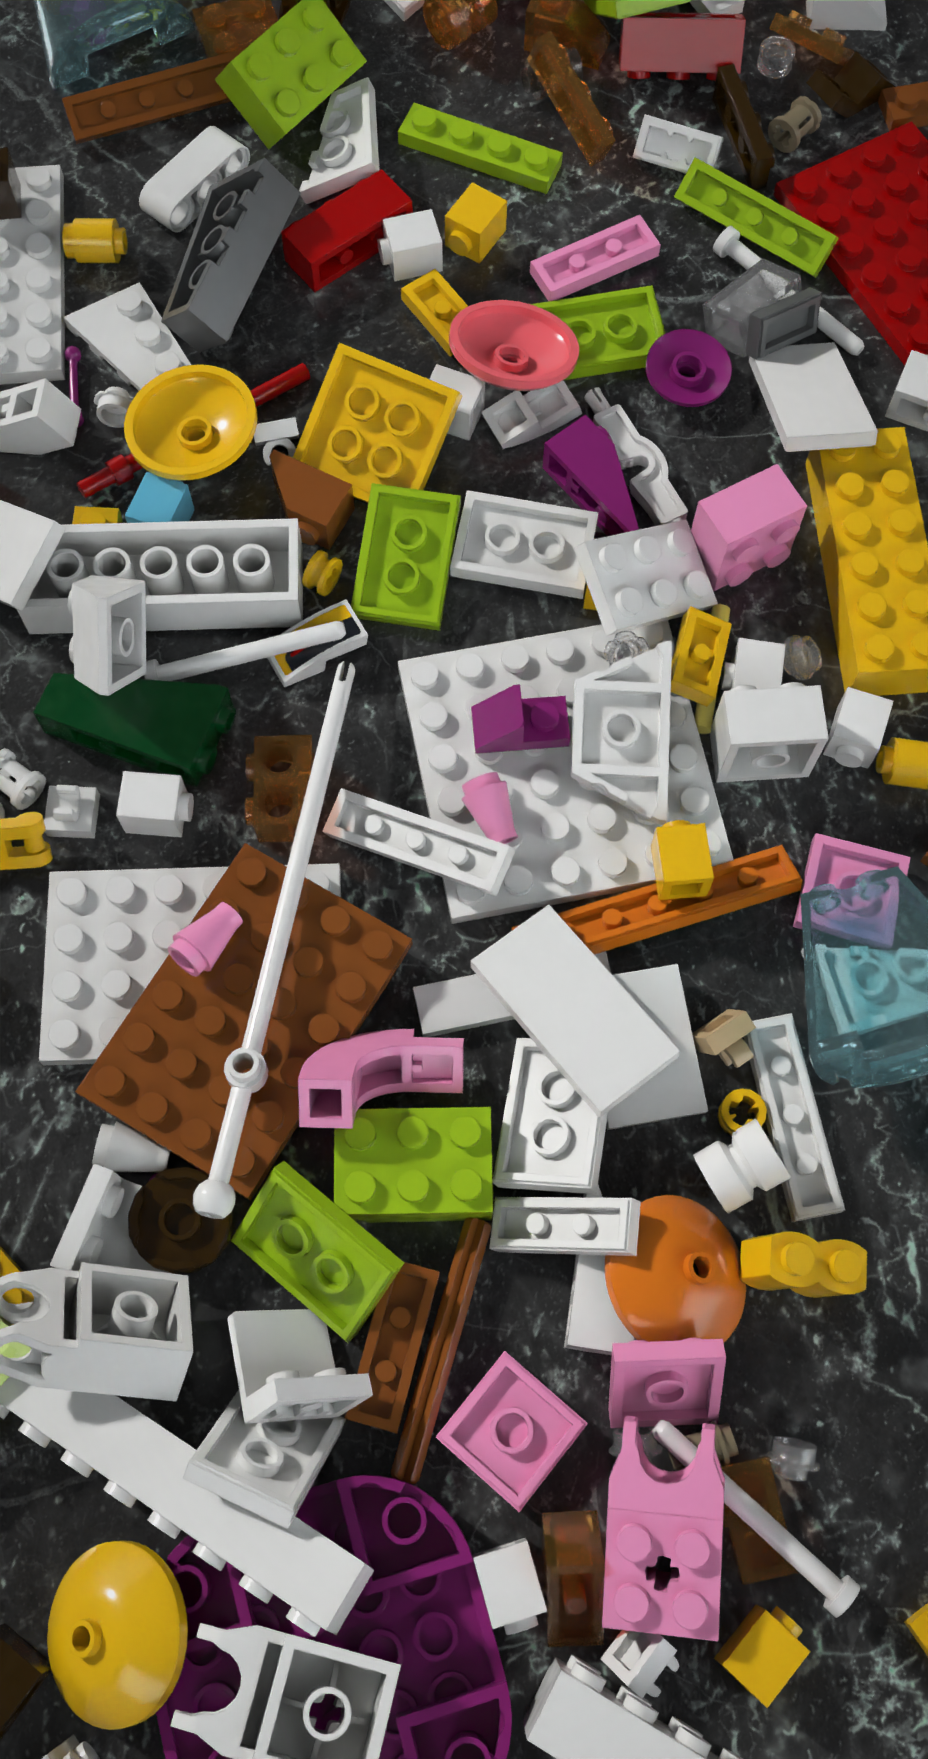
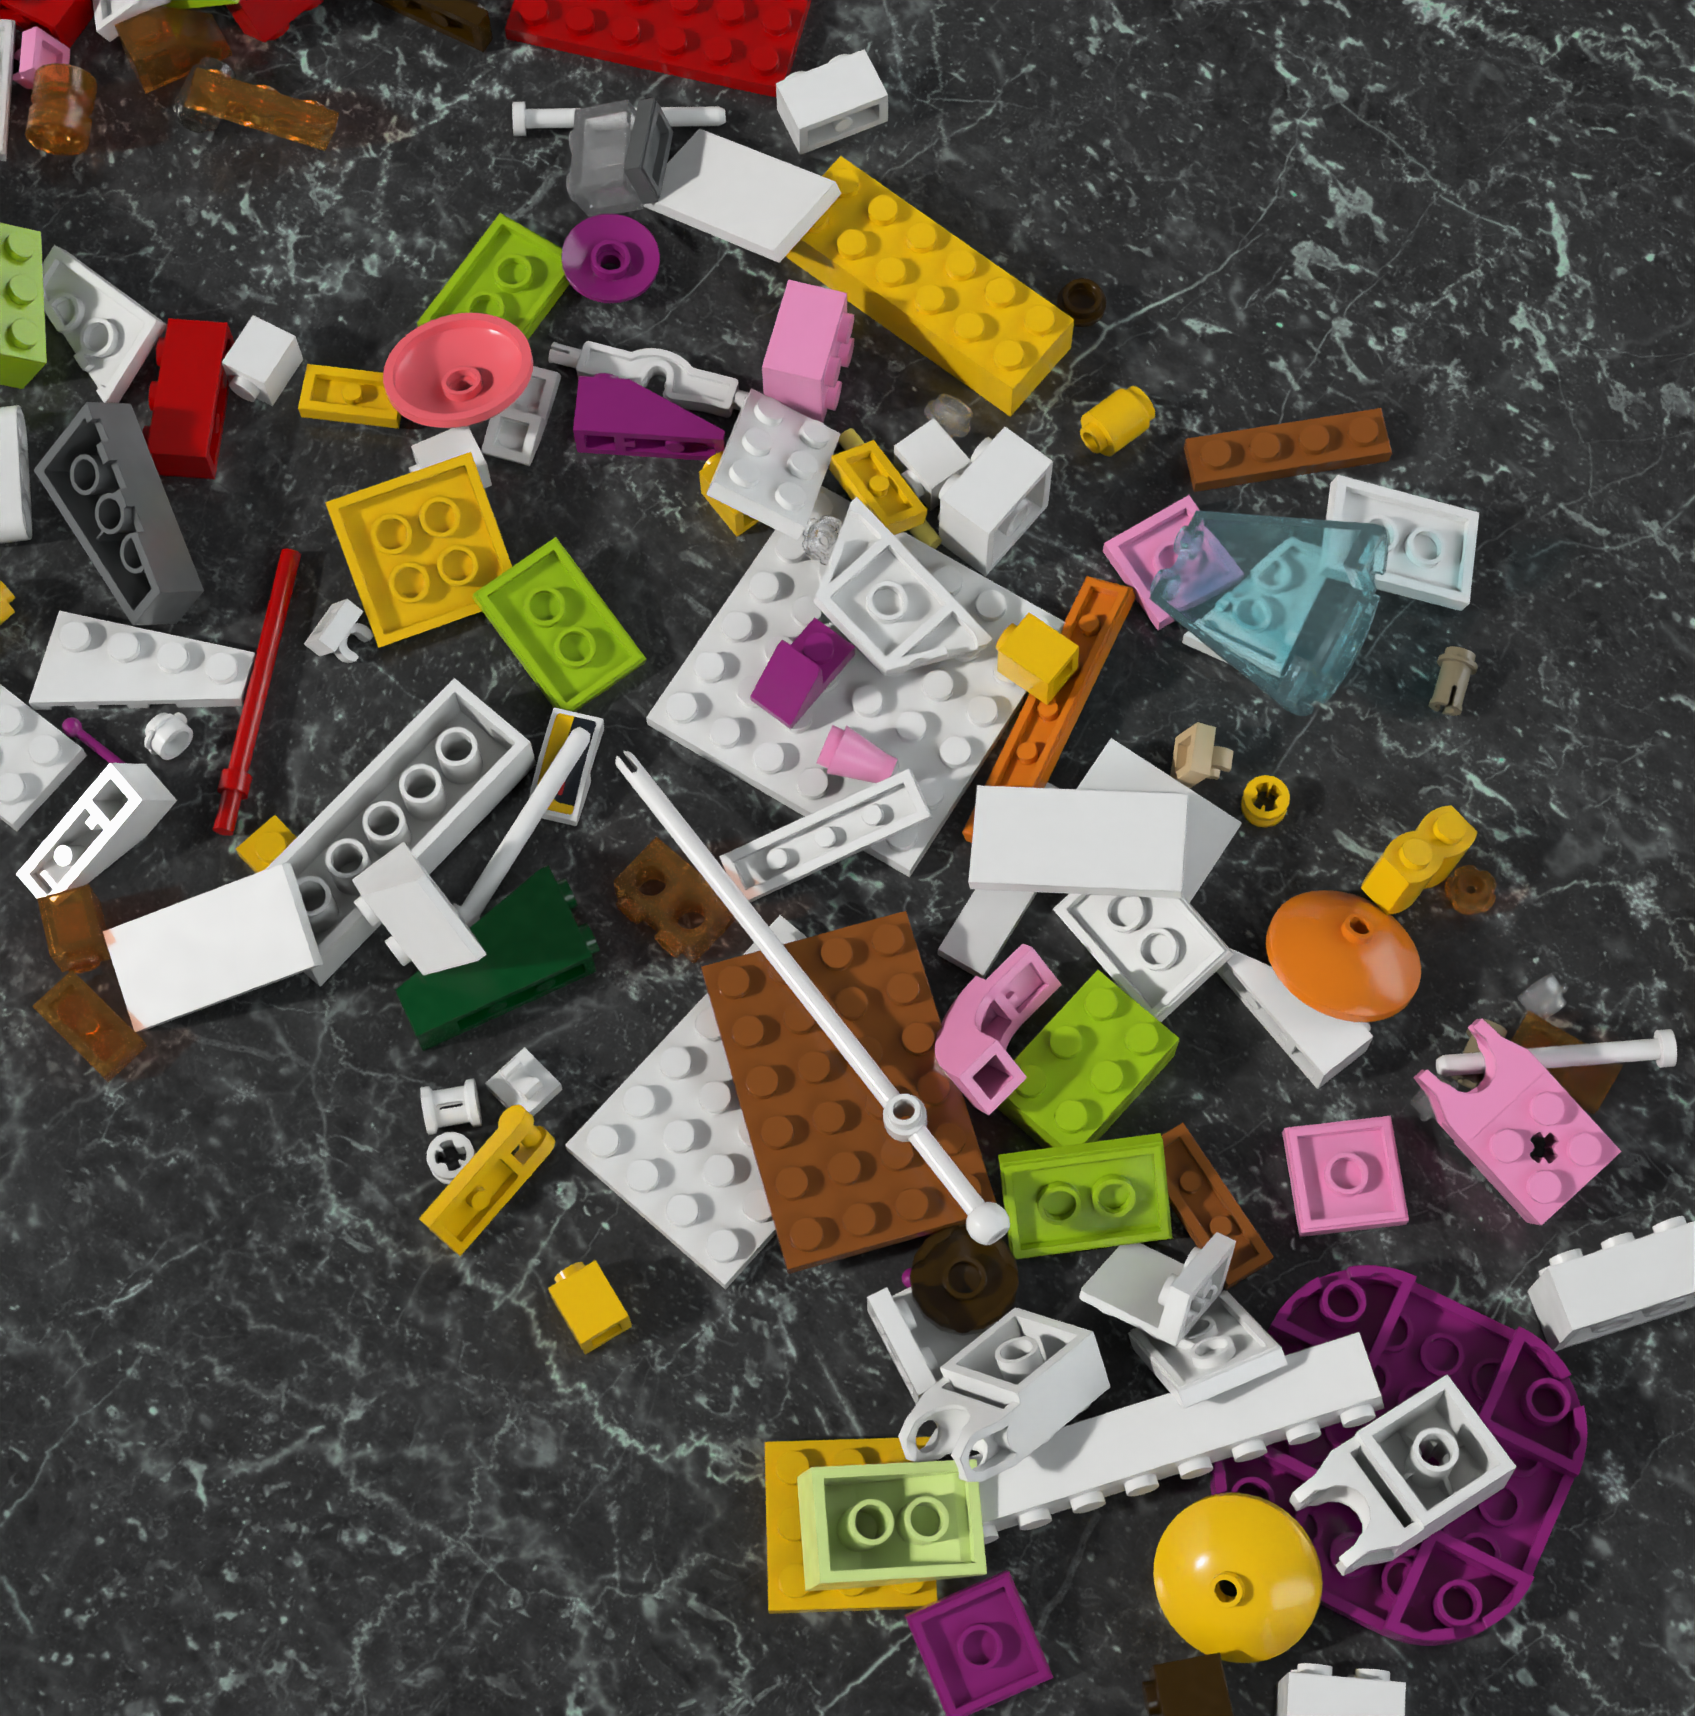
camera: 45 degrees left, 0 degrees up
(127, 1150) = (867, 1274): white cone -> none
(154, 804) = (588, 1012): white brick -> none
(160, 501) = (311, 777): medium azure brick -> none
(190, 422) = (250, 663): yellow dish -> none
(203, 941) = (765, 1062): bright pink cone -> none
(313, 497) = (424, 655): dark orange slope -> none
(322, 573) = (507, 703): yellow bush -> none
(441, 1351) = (1238, 1173): dark orange axle -> none
(475, 223) = (294, 292): yellow brick -> none
(480, 148) = (213, 220): lime plate -> none
(510, 1586) = (1456, 1269): white brick -> none
(522, 544) = (641, 527): white plate -> none
(566, 1225) = (1237, 997): white tile -> none
(573, 1578) = (1488, 1223): clear orange slope -> none
(594, 258) = (427, 232): bright pink plate -> none
(640, 1659) = (1582, 1223): white tile -> none
(666, 1381) = (1414, 1030): bright pink plate -> none
(675, 144) = (389, 69): white plate -> none
(741, 1166) = (1308, 834): white wheel -> none
(756, 217) = (522, 76): lime plate -> none
(763, 1653) = (1654, 1139): yellow brick -> none
(793, 1118) = (1305, 769): white tile -> none
(809, 1330) = (1470, 903): none -> clear orange plate
(858, 728) = (1051, 428): white brick -> none

